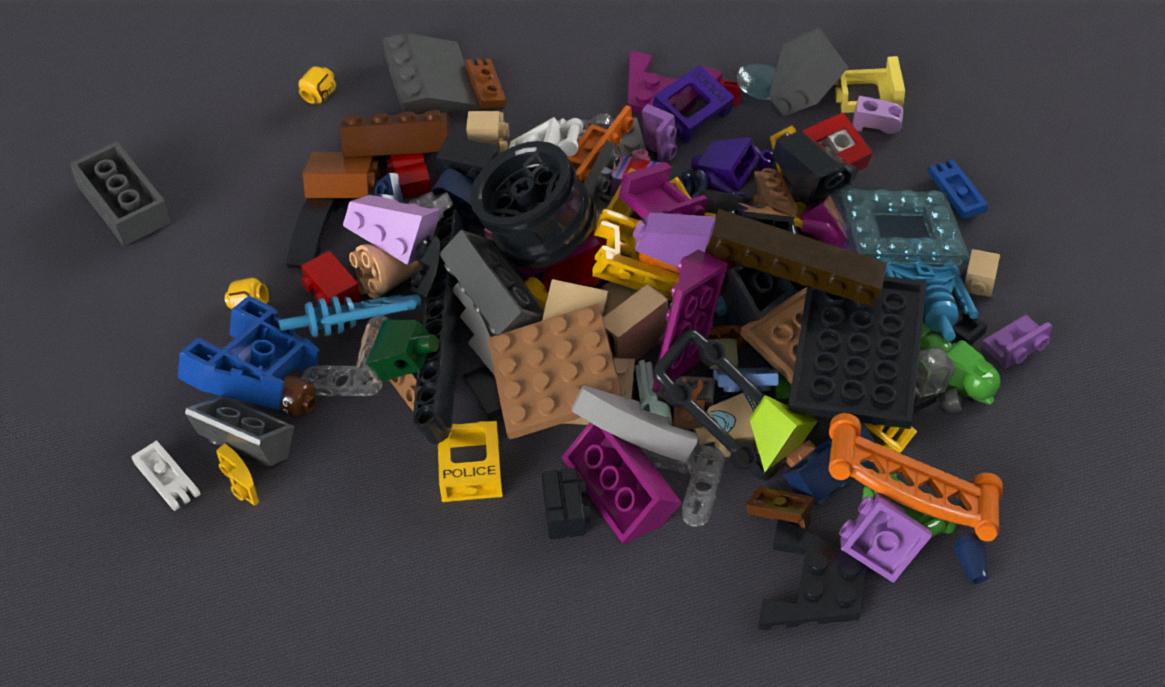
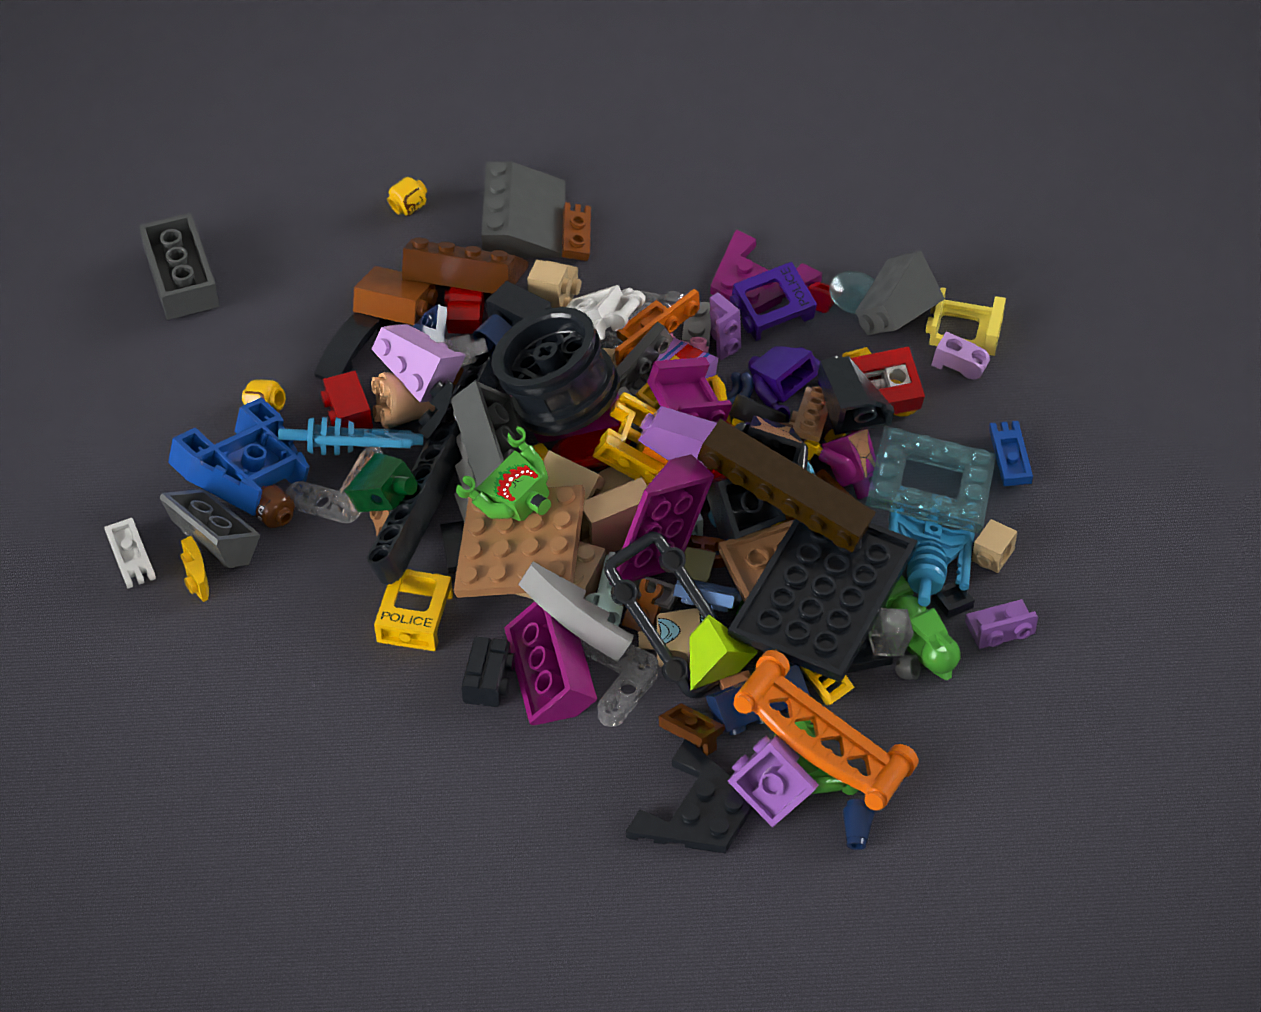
camera: 15 degrees right, 0 degrees up
(536, 318) = (514, 486): none -> bright green torso

